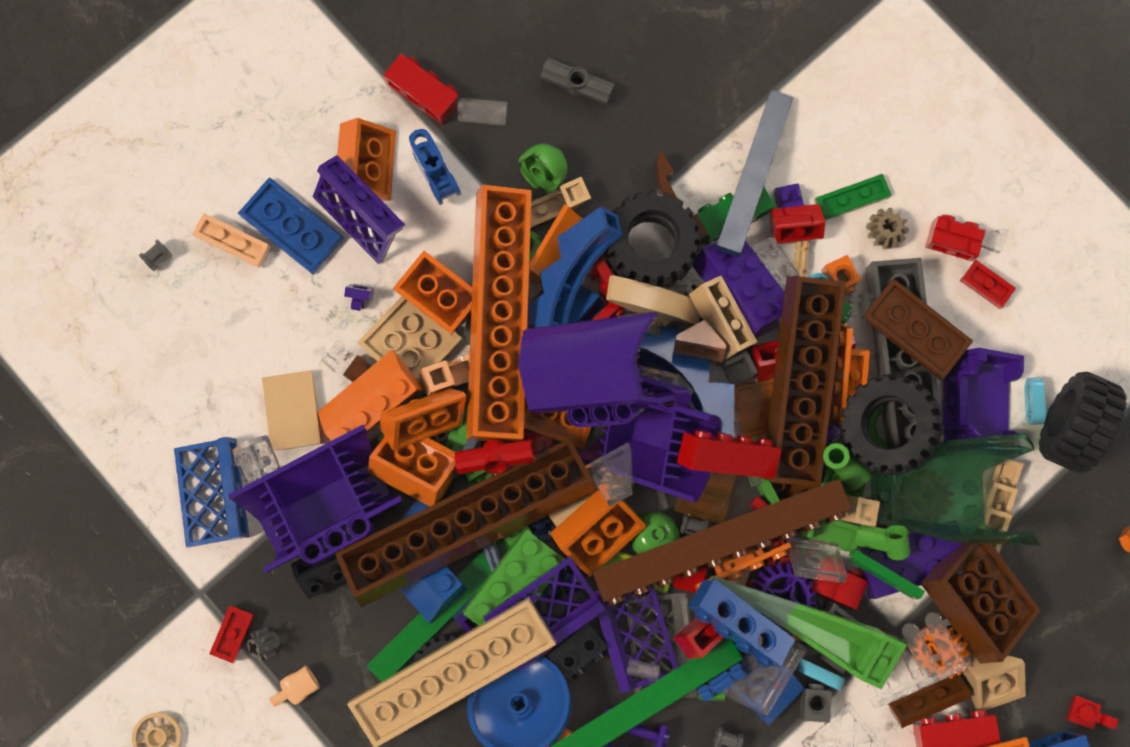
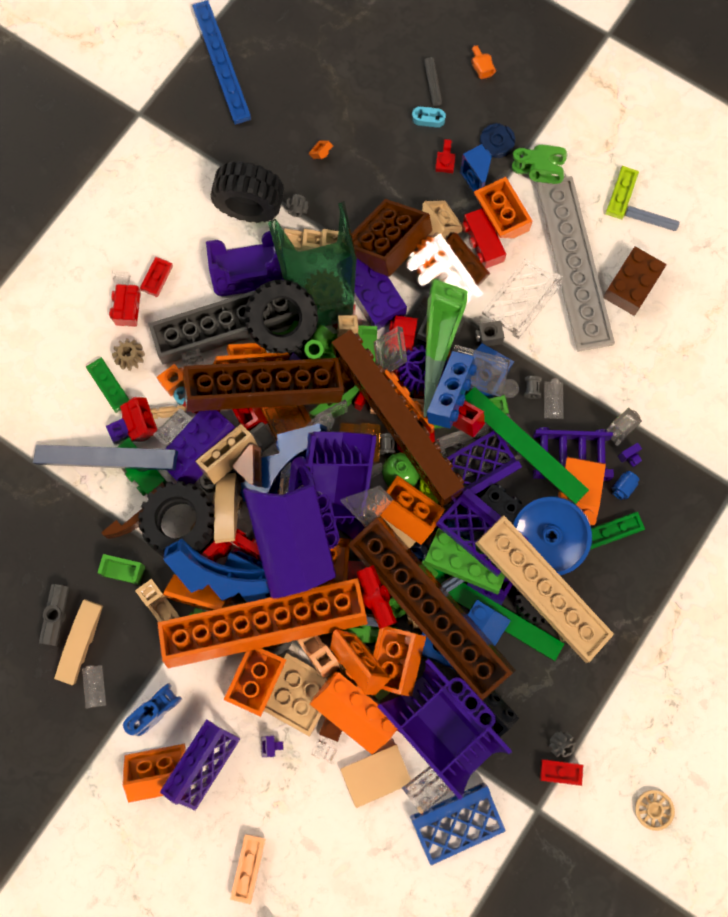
camera: 100 degrees left, 5 degrees down
(290, 225) = (223, 822): blue tile -> none
(296, 687) = (586, 710): light nougat piece -> none
(422, 88) = (84, 741): red brick -> none
(539, 103) = (78, 642): none -> tan slope
(544, 167) = (132, 622): bright green cylinder -> none
(612, 167) = (121, 569): none -> bright green panel
(643, 669) = (501, 452): clear pin -> none
(722, 682) = (494, 397): blue axle -> none
(729, 455) = (333, 421): red brick -> none
(733, 711) = (511, 388): none -> clear plate
(820, 674) = (469, 333): medium azure beam -> none
(885, 575) = (389, 302): green tile -> none
(891, 540) = (364, 301): bright green piece -> none
(917, 329) = (203, 315): reddish brown tile -> none
(1035, 401) = (236, 229): medium azure beam -> none
(1054, 489) = (297, 205): none -> dark grey gear

